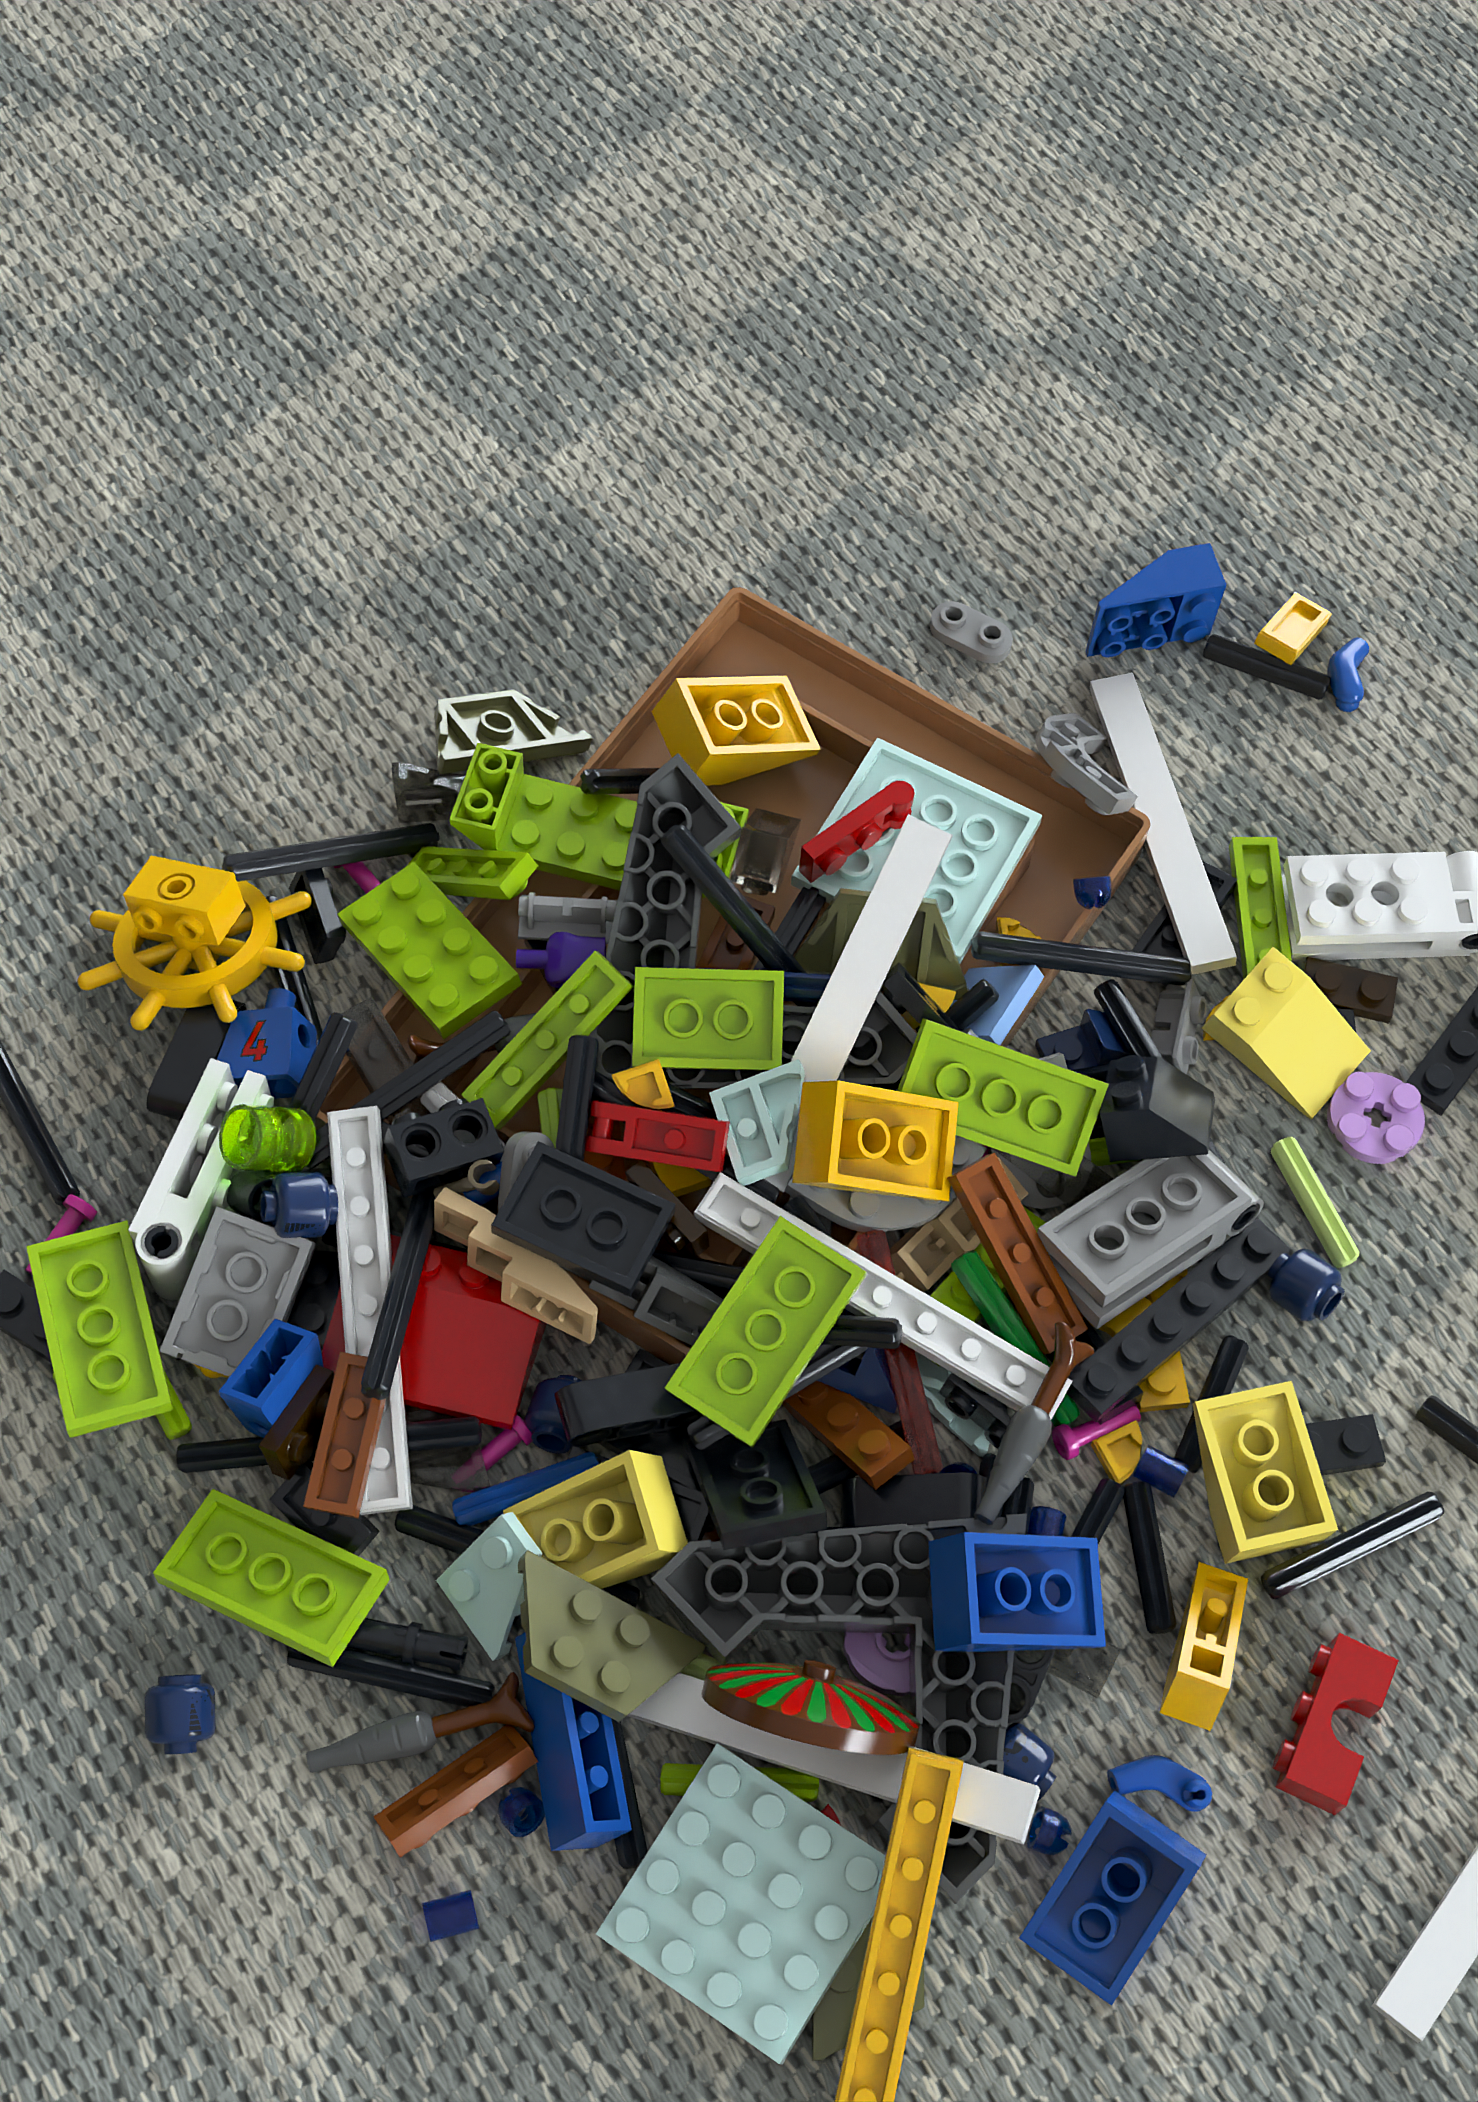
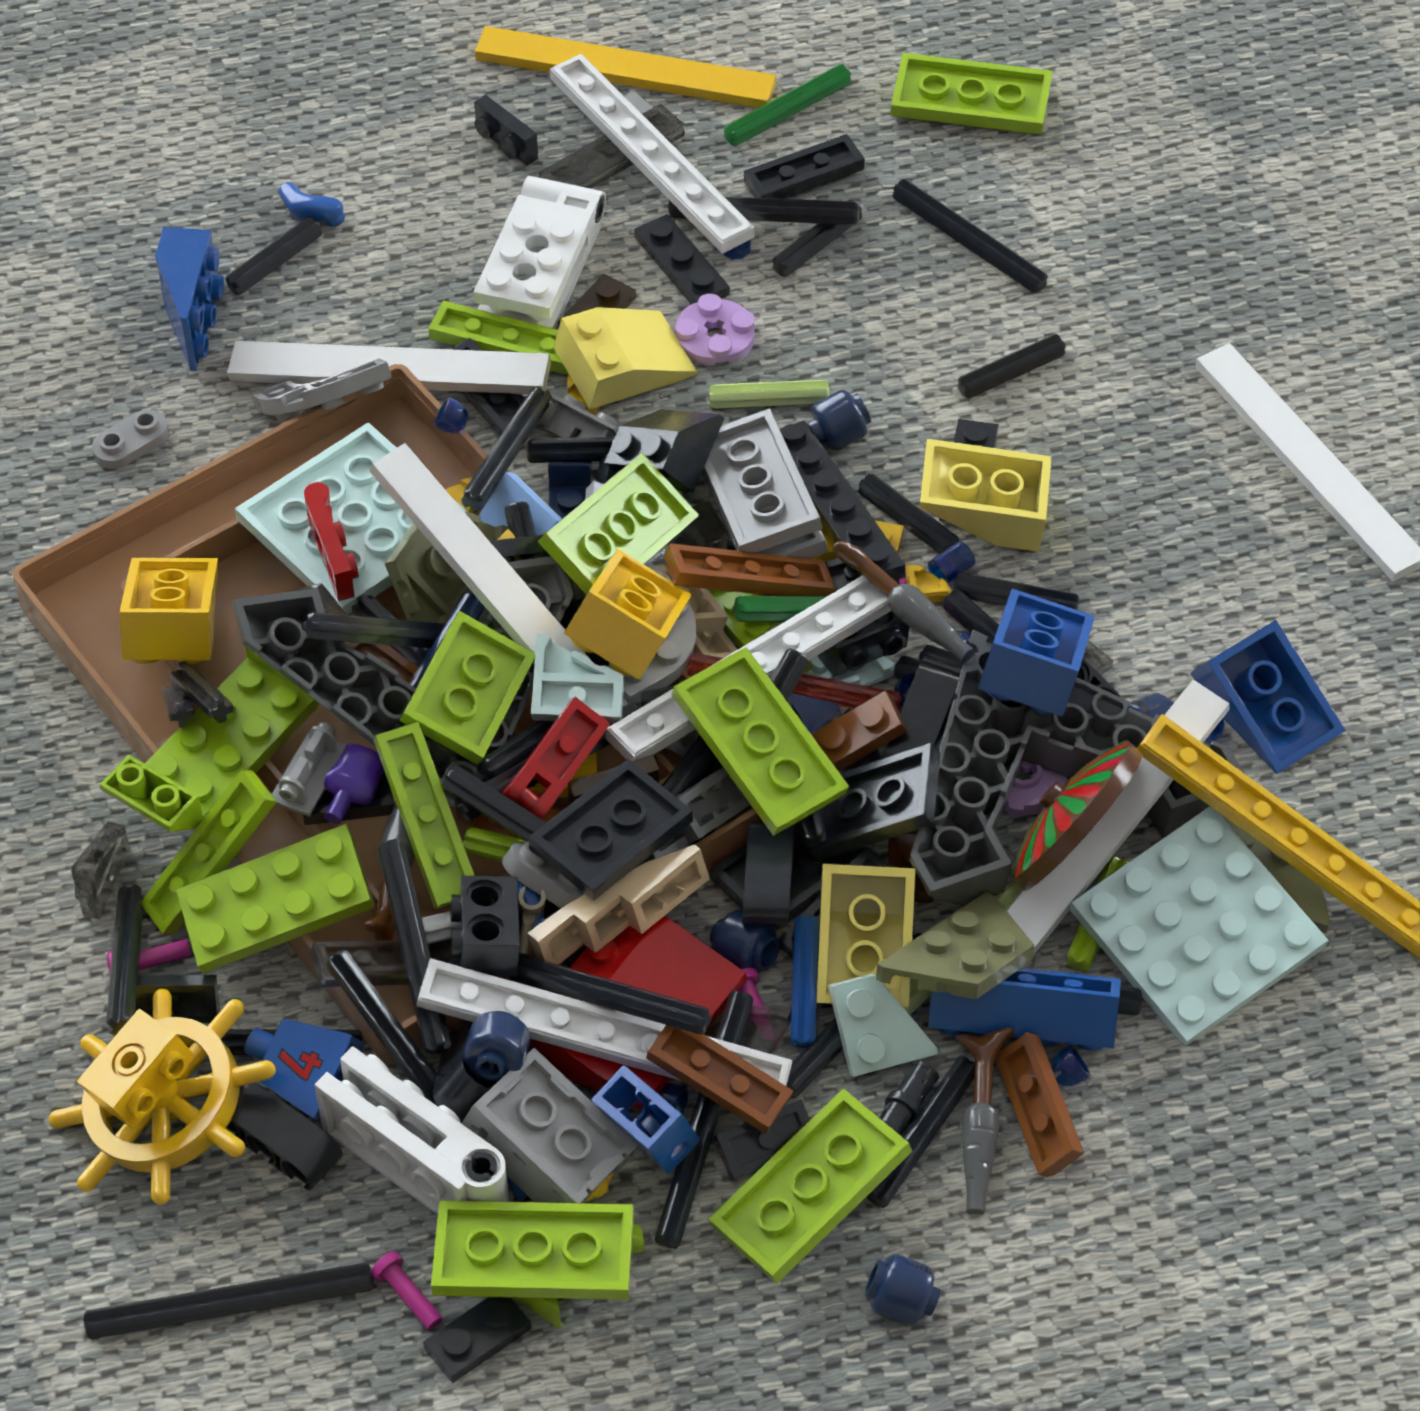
camera: 65 degrees left, 10 degrees down
(267, 1138) = (421, 1053): clear neon green wheel -> none
(299, 1425) = (705, 1122): dark brown plate -> none
(450, 1915) = (1139, 1138): clear blue hinge -> none
(501, 721) = (56, 804): olive wing -> none
(618, 796) = (202, 692): none -> black axle
(645, 1085) = (506, 752): yellow tile -> none
(1164, 1776) = (1191, 640): blue arm -> none
(1205, 1647) = (1108, 581): yellow slope -> none
(1292, 628) = (249, 223): yellow tile -> none
(1315, 1762) = (1209, 544): red arch -> none
(1352, 1545) = (1059, 493): black axle -> none

